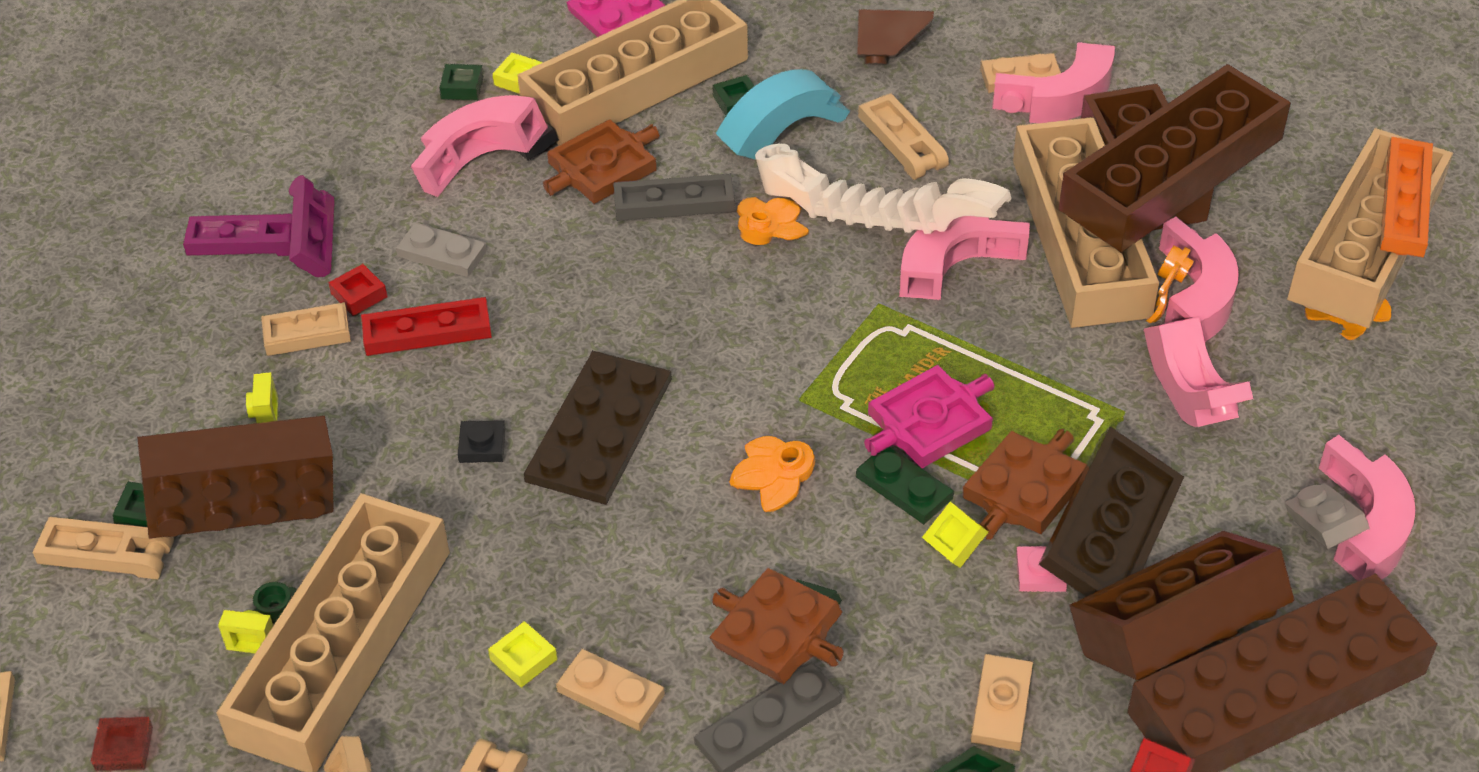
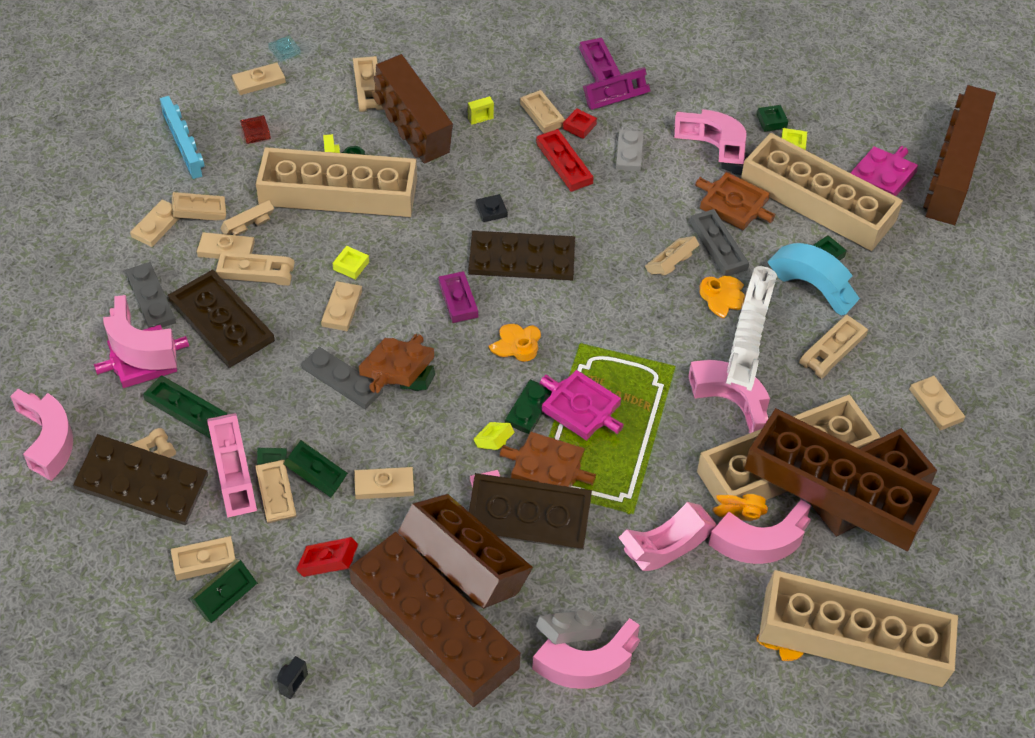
camera: 70 degrees right, 5 degrees up
(657, 522) = (458, 297): none -> magenta plate
(680, 250) = (676, 252): none -> tan plate
(889, 32) = (930, 314): reddish brown slope -> none
(1058, 95) = (931, 436): bright pink arch -> none
(1407, 197) = (871, 630): orange plate -> none

